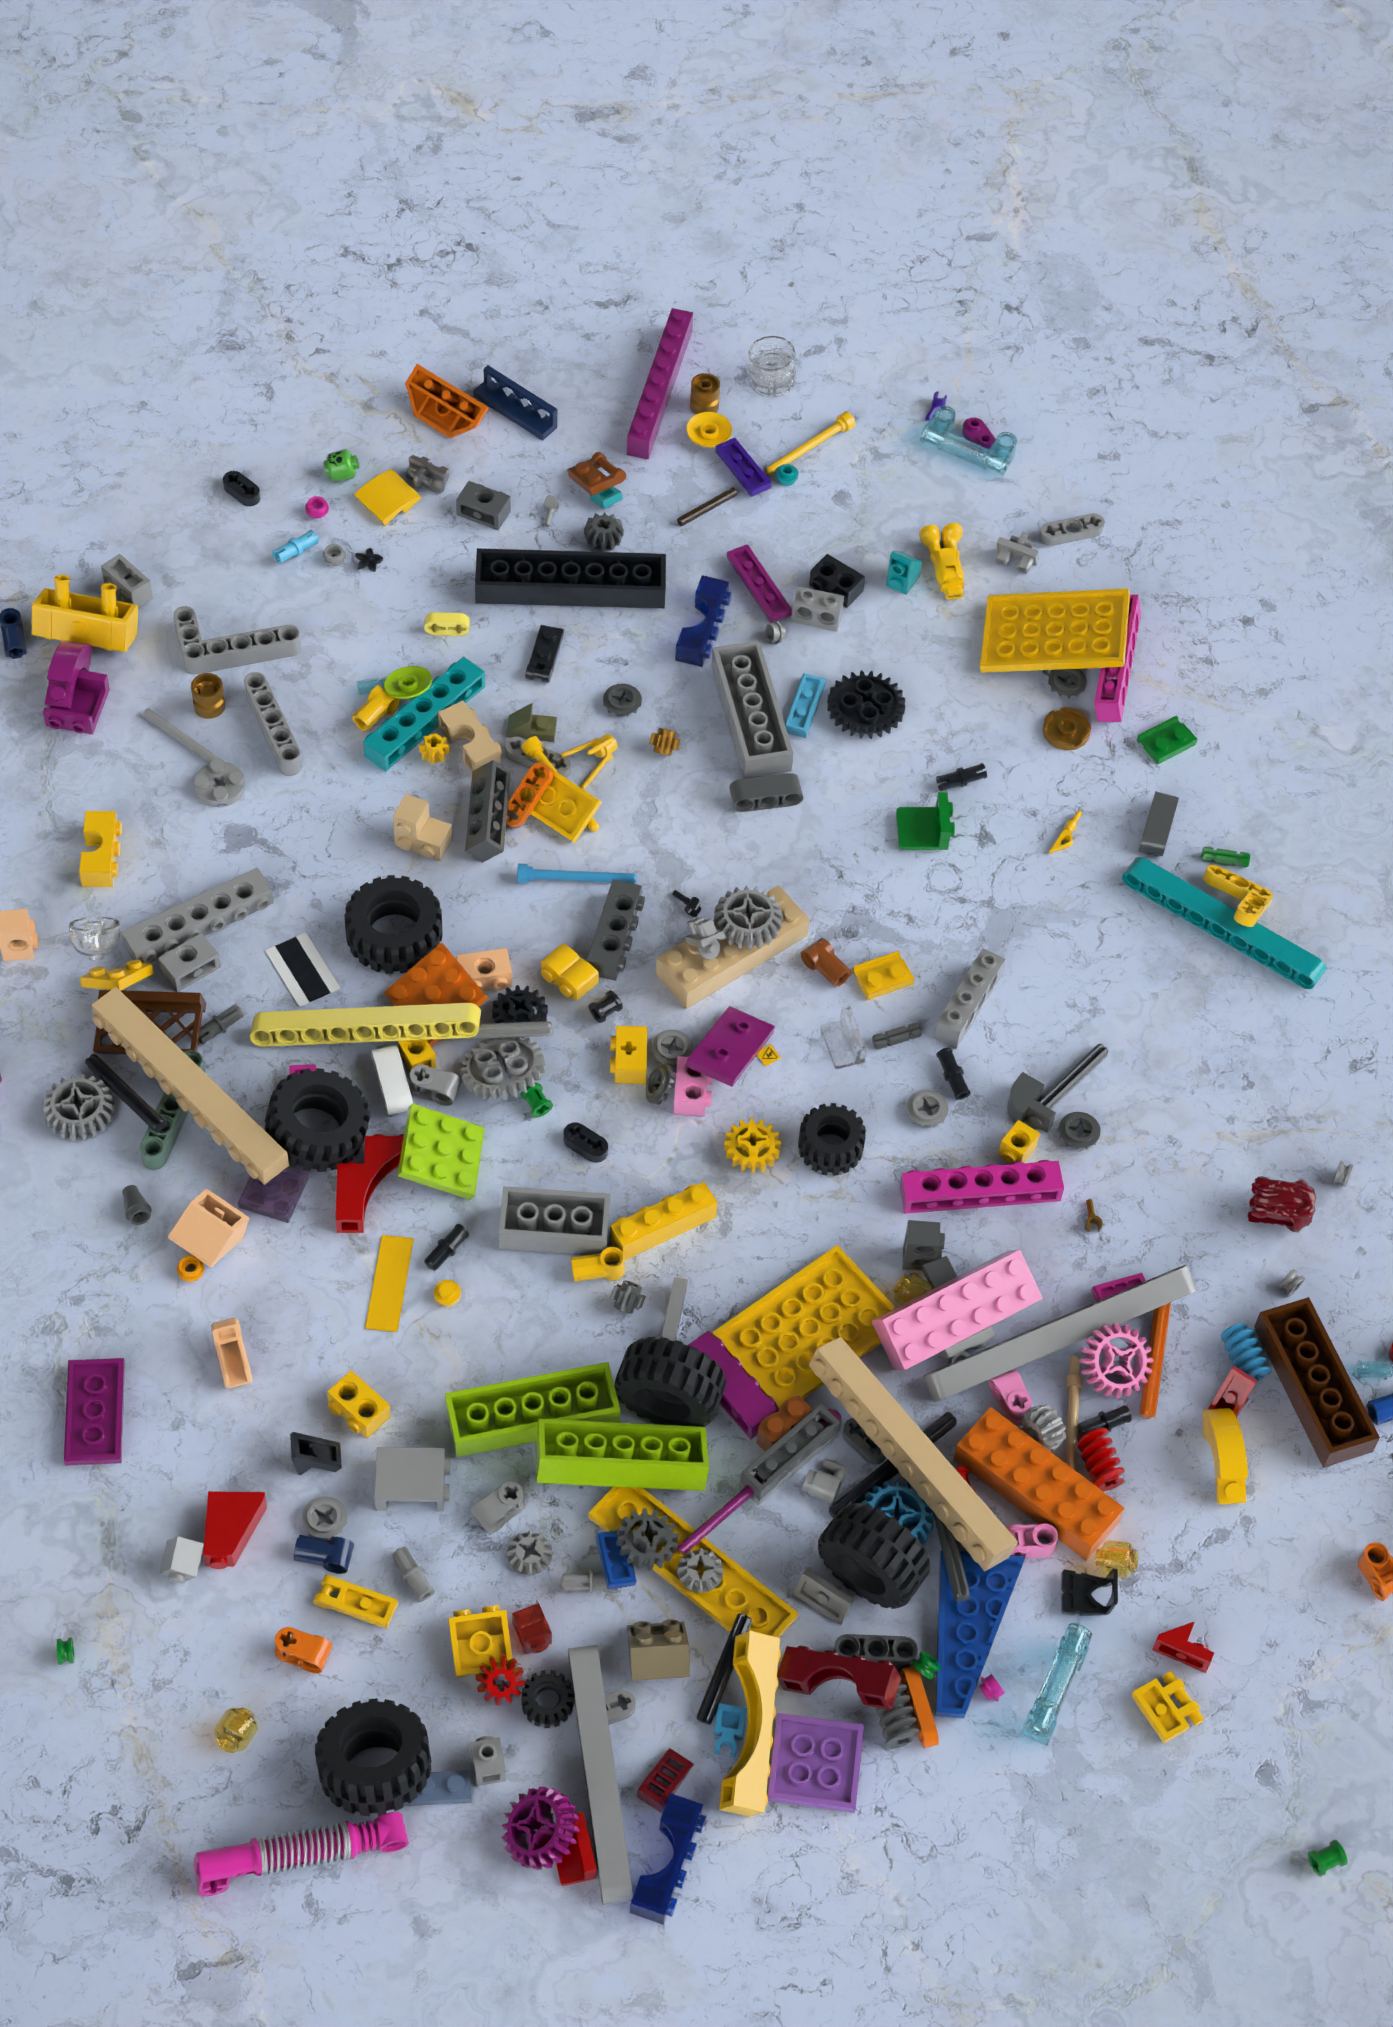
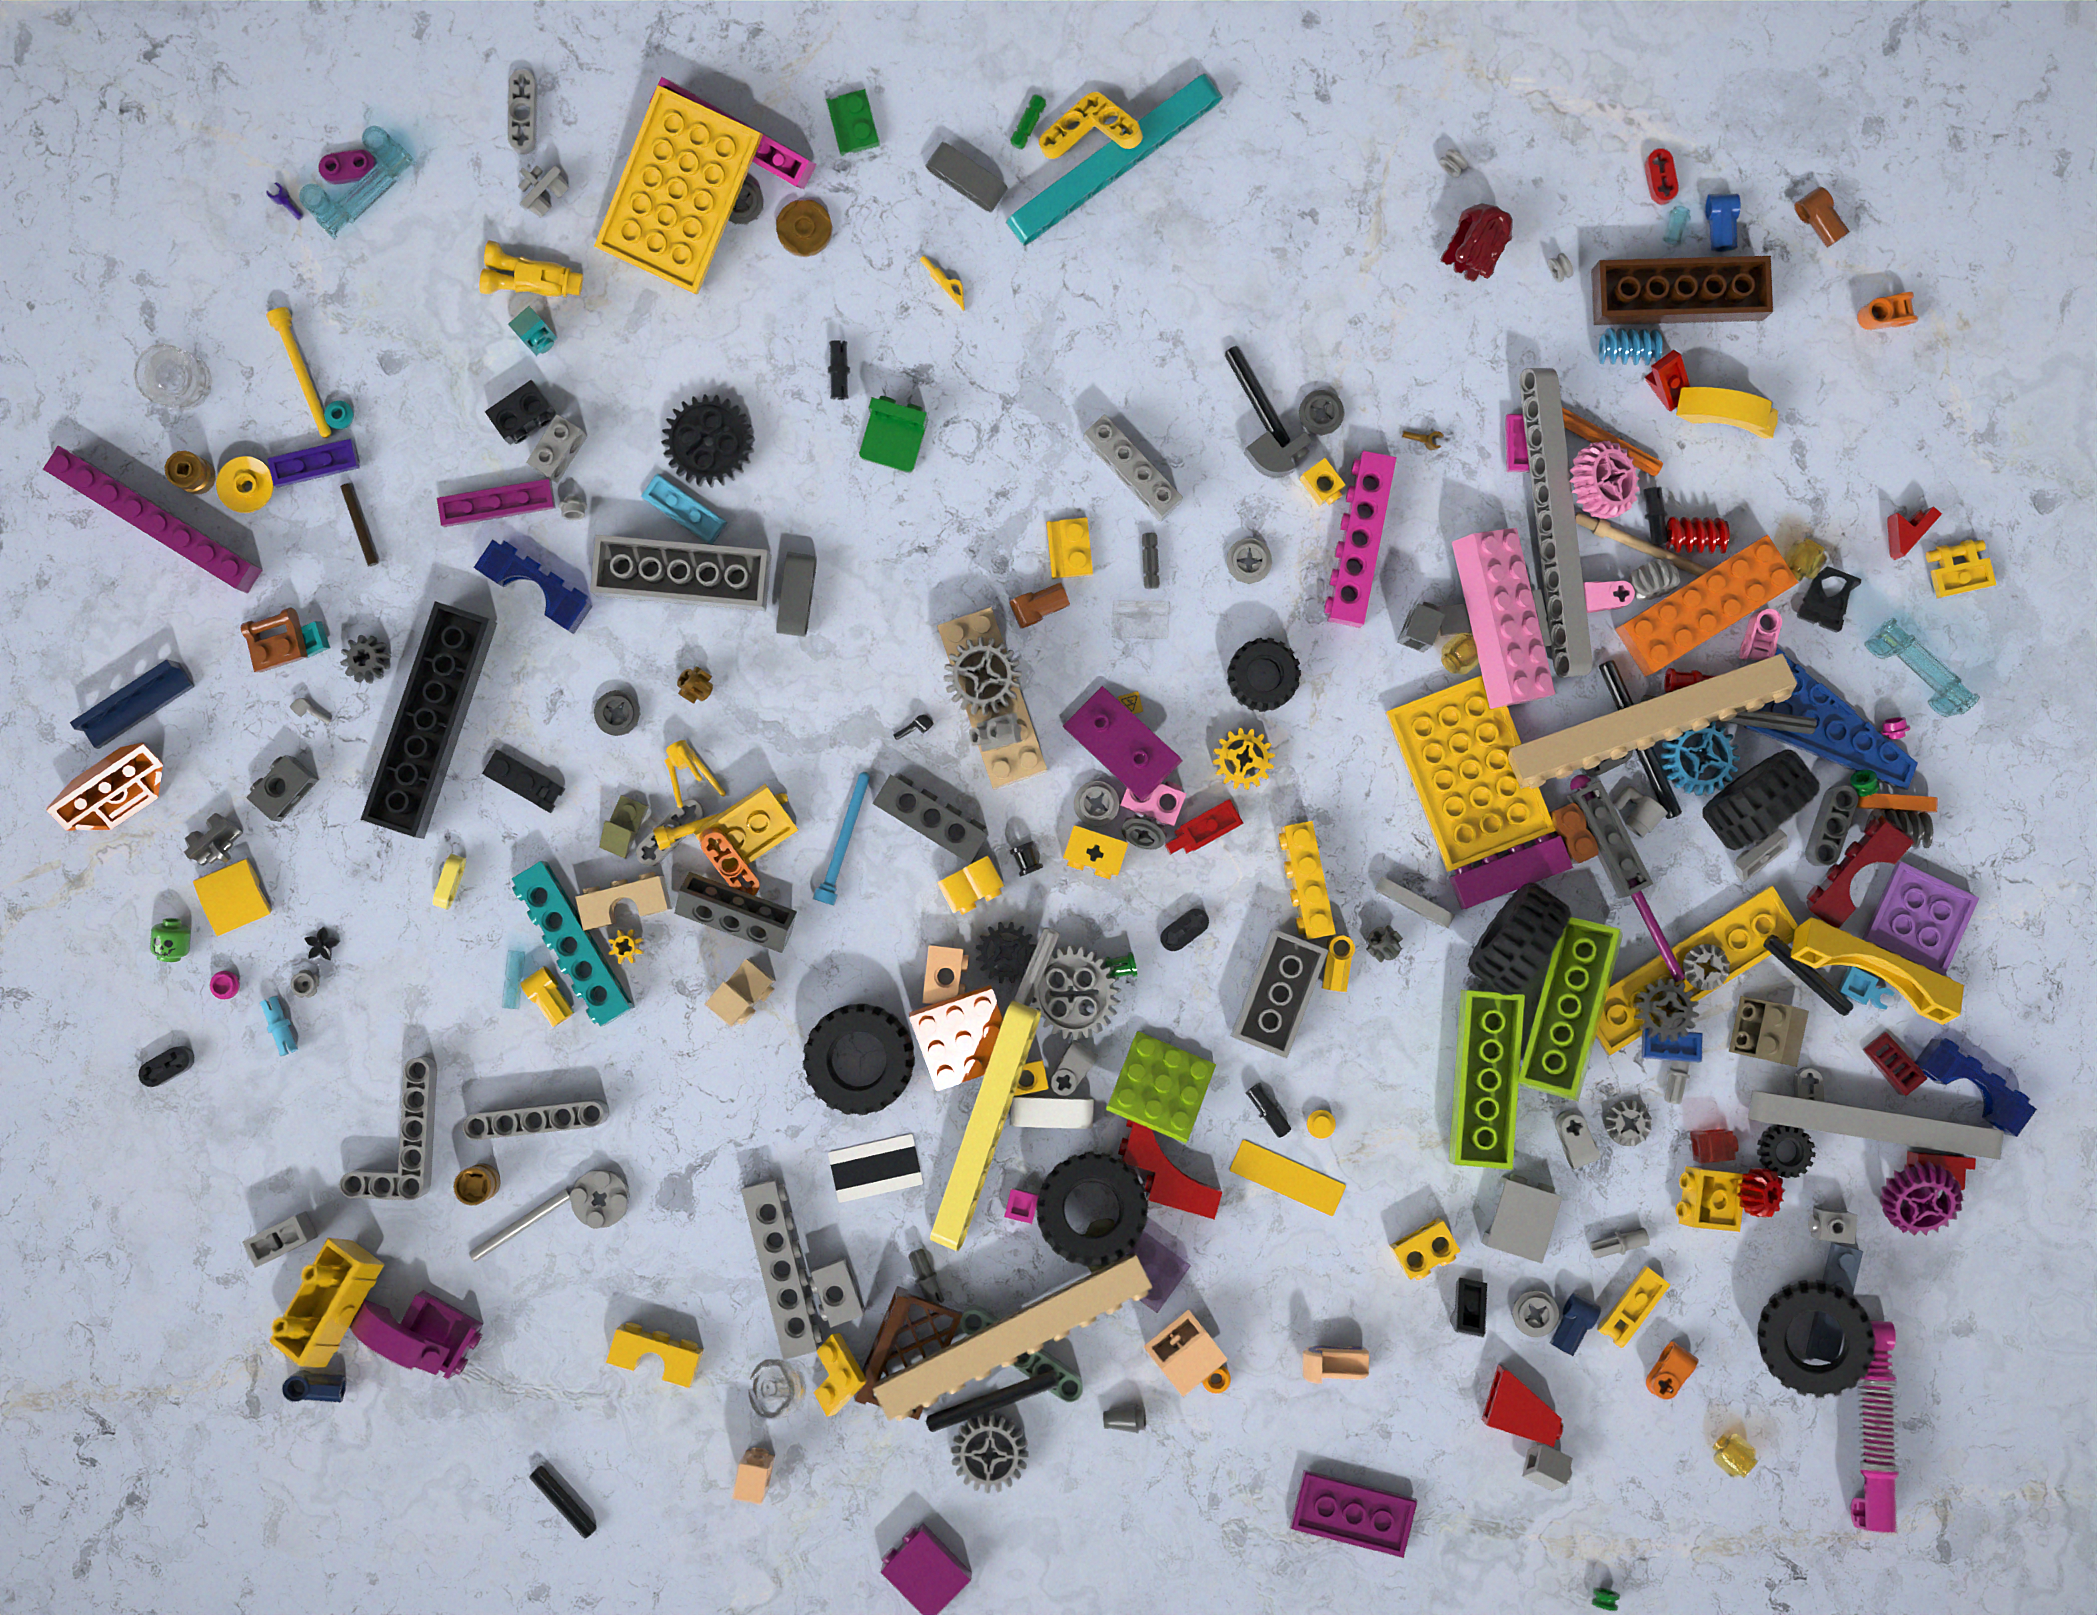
camera: 70 degrees left, 30 degrees up
(408, 682) = (519, 953): lime dish -> none
(680, 1133) = (1205, 828): none -> red hinge
(953, 1073) = (1216, 518): black pin -> none

